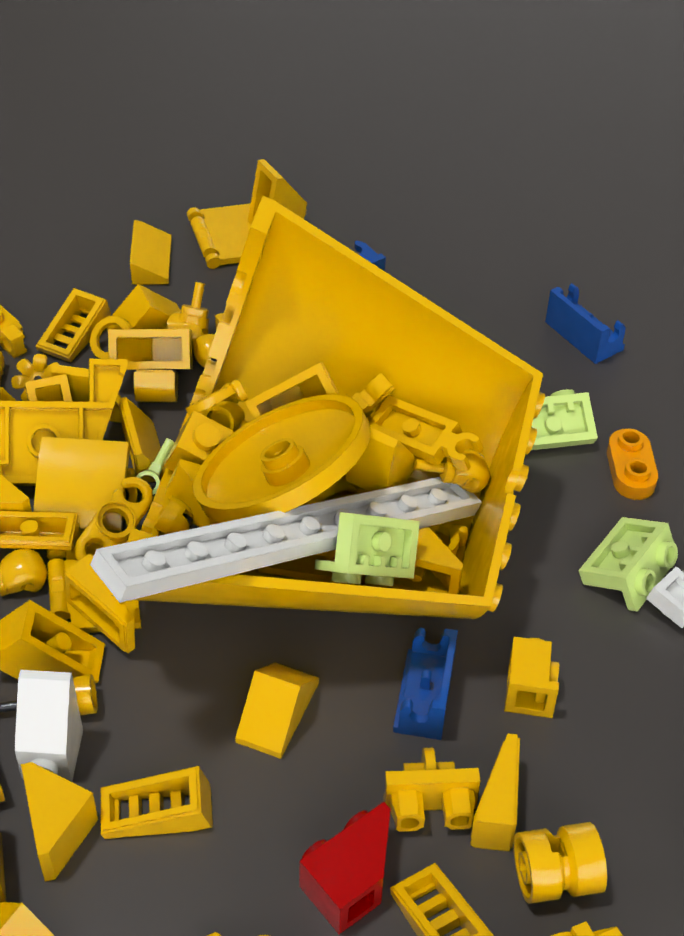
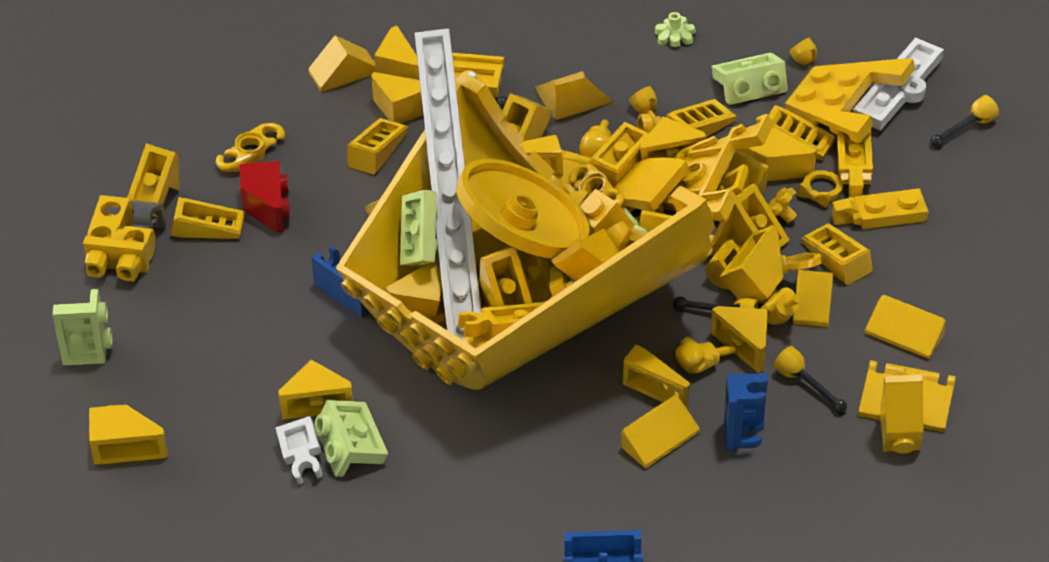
camera: 125 degrees right, 0 degrees up
(232, 390) = (619, 229): yellow piece -> none
(431, 787) = (281, 247): yellow hips -> none
(497, 811) = (246, 272): yellow slope -> none
(531, 678) = (308, 328): yellow brick -> none
(560, 862) = (186, 270): yellow wheel -> none
(565, 421) = (514, 470): yellowish green bracket -> none
(612, 619) = (310, 389): none -> yellow slope
(632, 464) = (431, 501): light orange plate -> none

